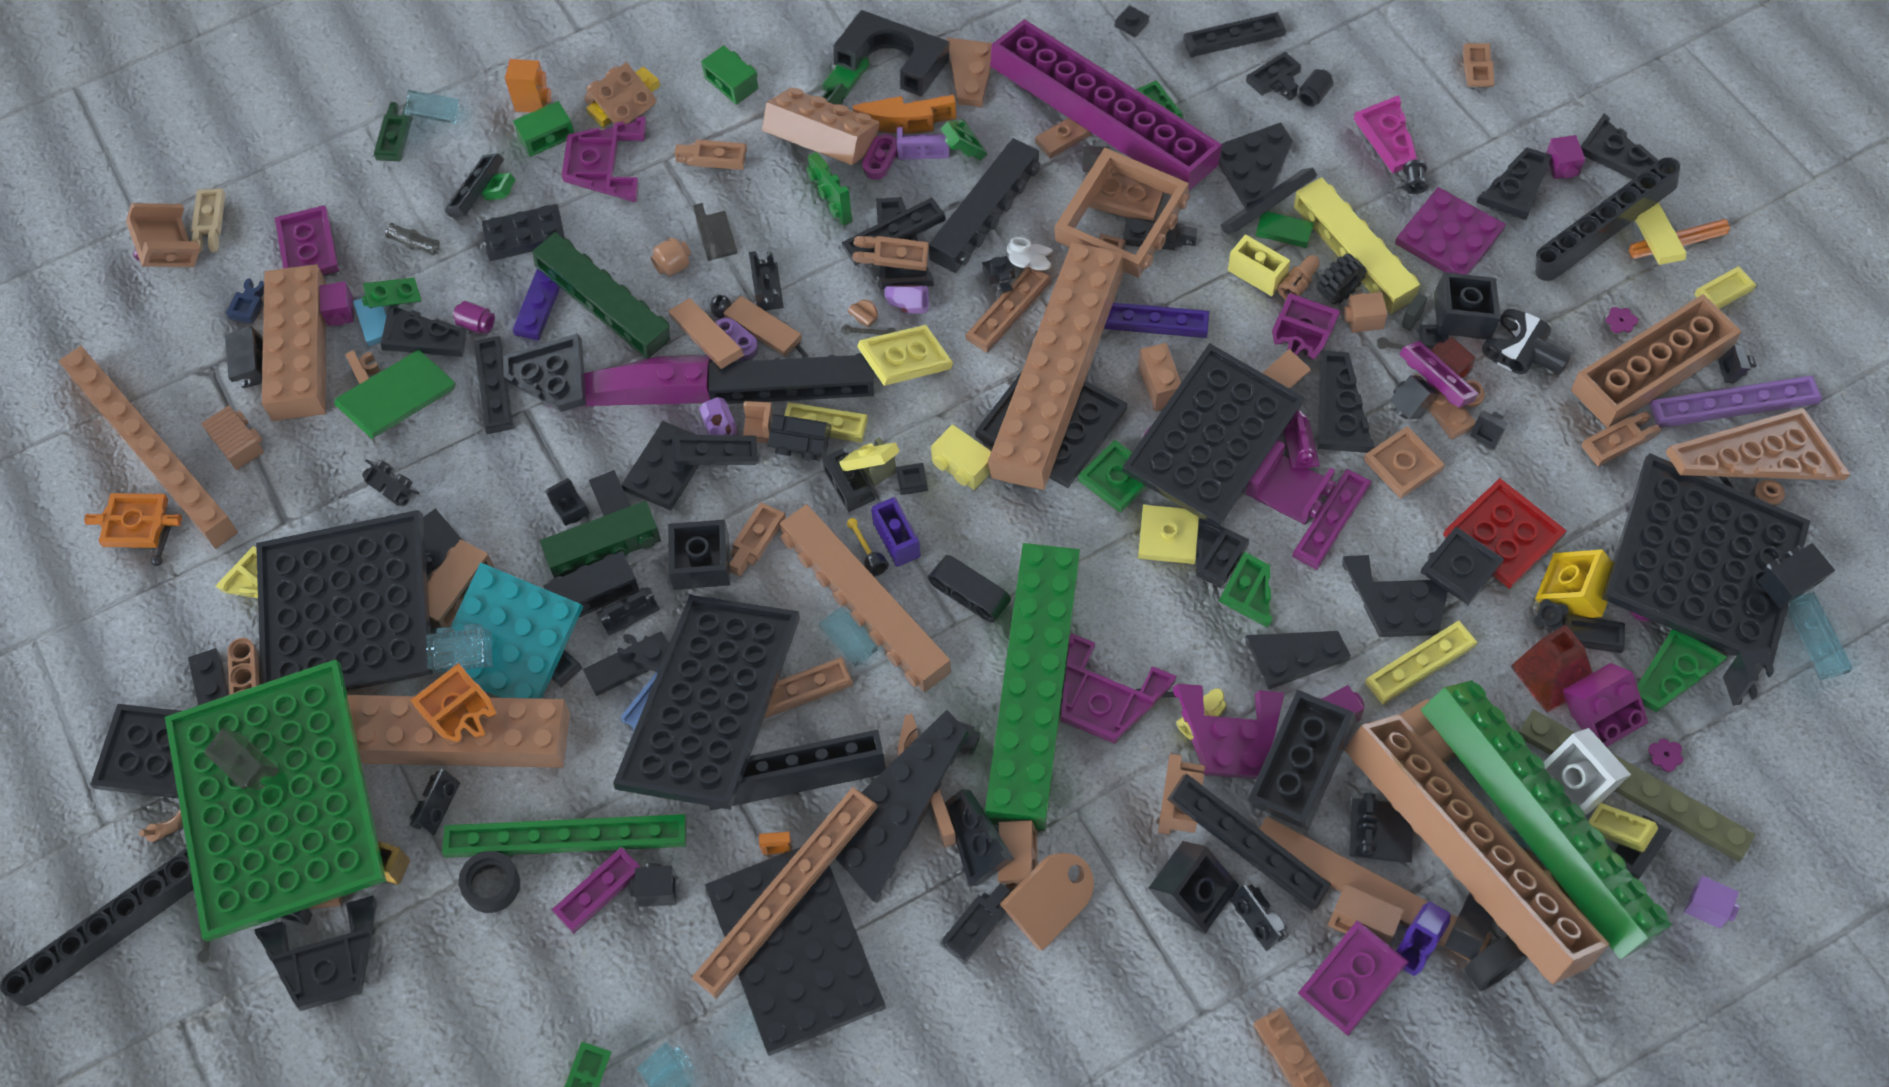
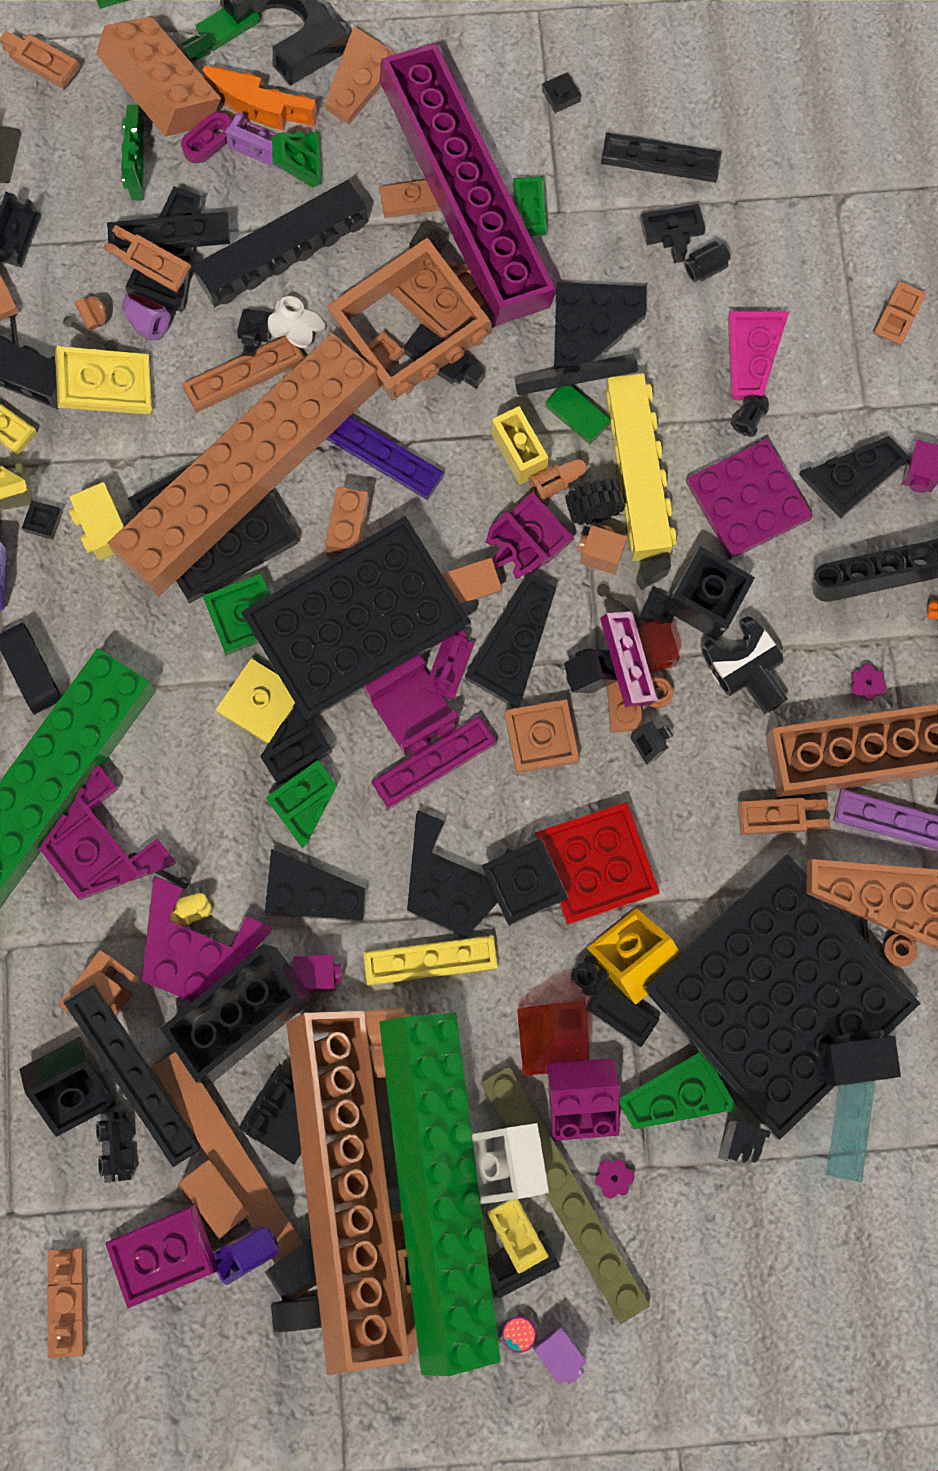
camera: 20 degrees right, 15 degrees up
(1671, 902) = (519, 1334): none -> coral tile

